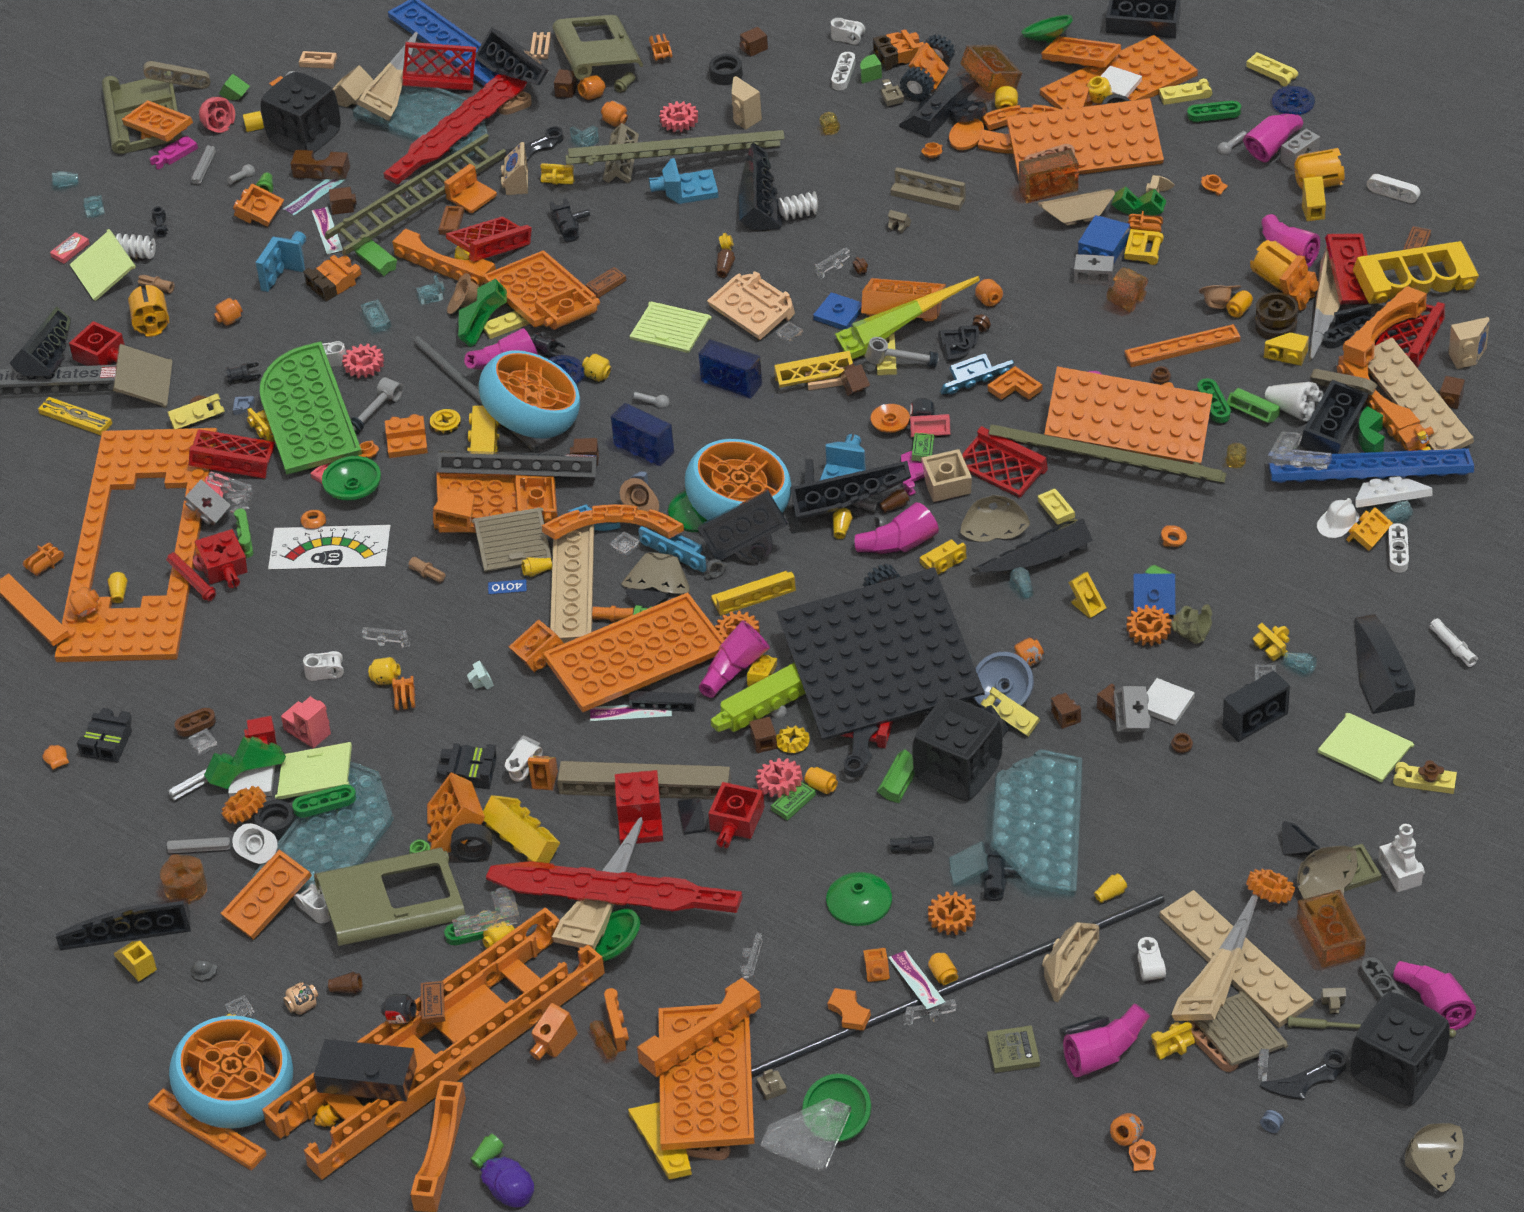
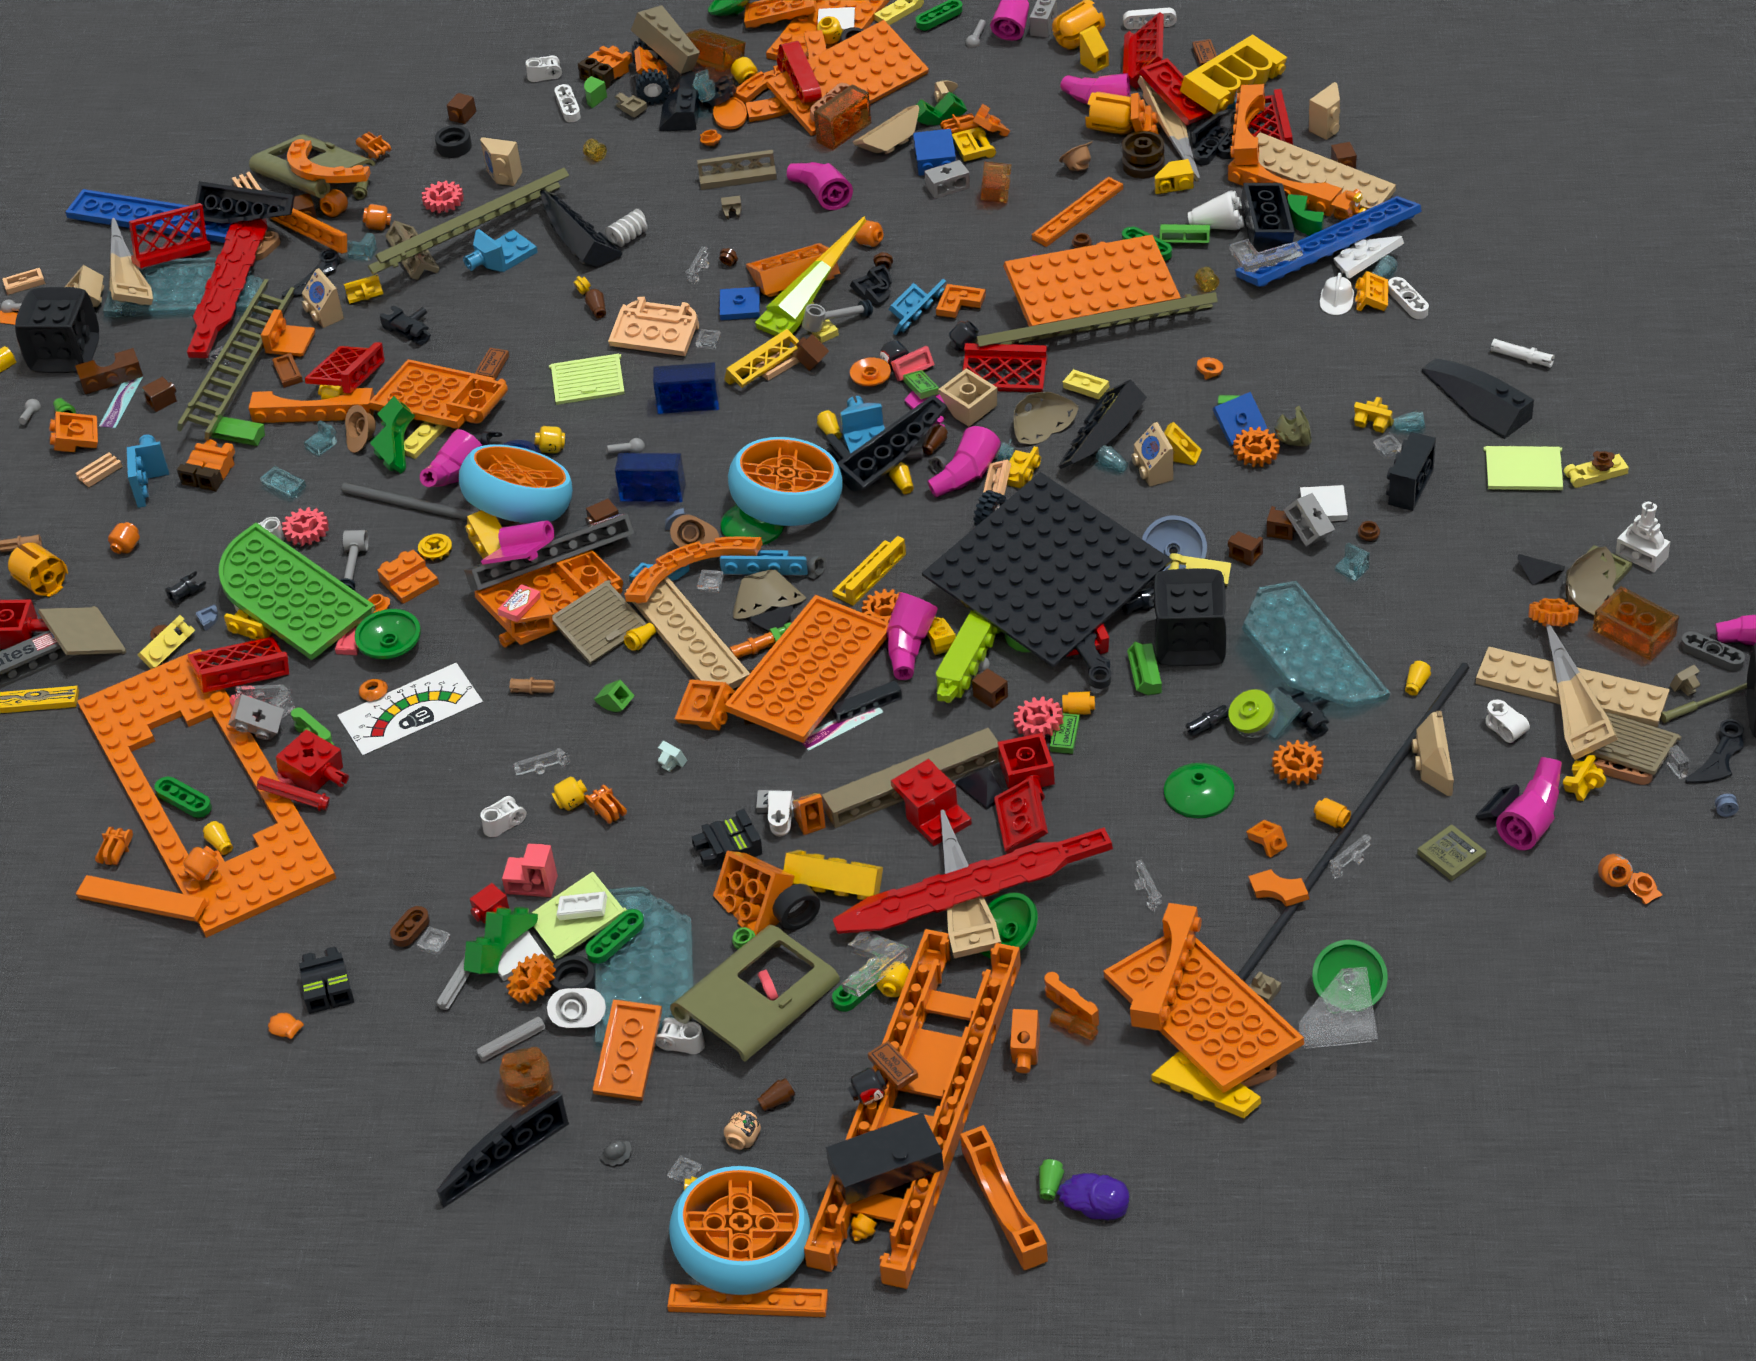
camera: 30 degrees left, 0 degrees up
(117, 543) = (183, 797): none -> green plate
(137, 959) = (540, 1174): yellow slope -> none
(252, 246) = (99, 469): none -> light nougat tile
(318, 765) = (582, 905): none -> white plate
(324, 223) = (162, 427): sticker -> none
(404, 895) = (767, 985): none -> coral tile
(449, 496) = (519, 603): none -> coral tile
(478, 607) = (614, 696): none -> bright green brick
(492, 445) = (521, 542): none -> dark pink door
(507, 586) = (623, 667): blue sticker -> none
(556, 104) = (315, 230): none -> orange tile
(582, 53) = (304, 168): none -> orange plate
(698, 851) = (1020, 815): none -> red tile
(744, 528) = (826, 515): black plate -> none
(798, 744) = (1027, 679): yellow gear -> none
(820, 451) = (828, 423): none -> yellow cone
(914, 558) = (1000, 478): none -> light nougat tile
(916, 979) = (1317, 834): sticker -> none
(941, 536) = (1006, 450): none -> clear light blue plate
(948, 855) = (1253, 713): none -> lime piece
(951, 42) = (666, 38): none -> dark tan wedge
(954, 100) = (704, 86): none -> clear light blue piece
(988, 231) = (825, 182): none -> dark pink piece
(988, 416) = (963, 333): none -> black head
(1030, 651) = (1170, 507): orange head -> none
(1036, 120) = (794, 61): none -> red beam
(1053, 596) = (1154, 456): none -> tan slope
(1145, 766) = (1354, 563): none -> clear light blue panel
(1170, 230) = (989, 121): none -> orange plate
(1213, 184) = (990, 72): orange animal -> none
(1239, 303) = (1100, 158): light orange brick -> none
(1324, 378) = (1236, 184): dark tan beam -> none
(1355, 214) = (1143, 48): none -> red fence

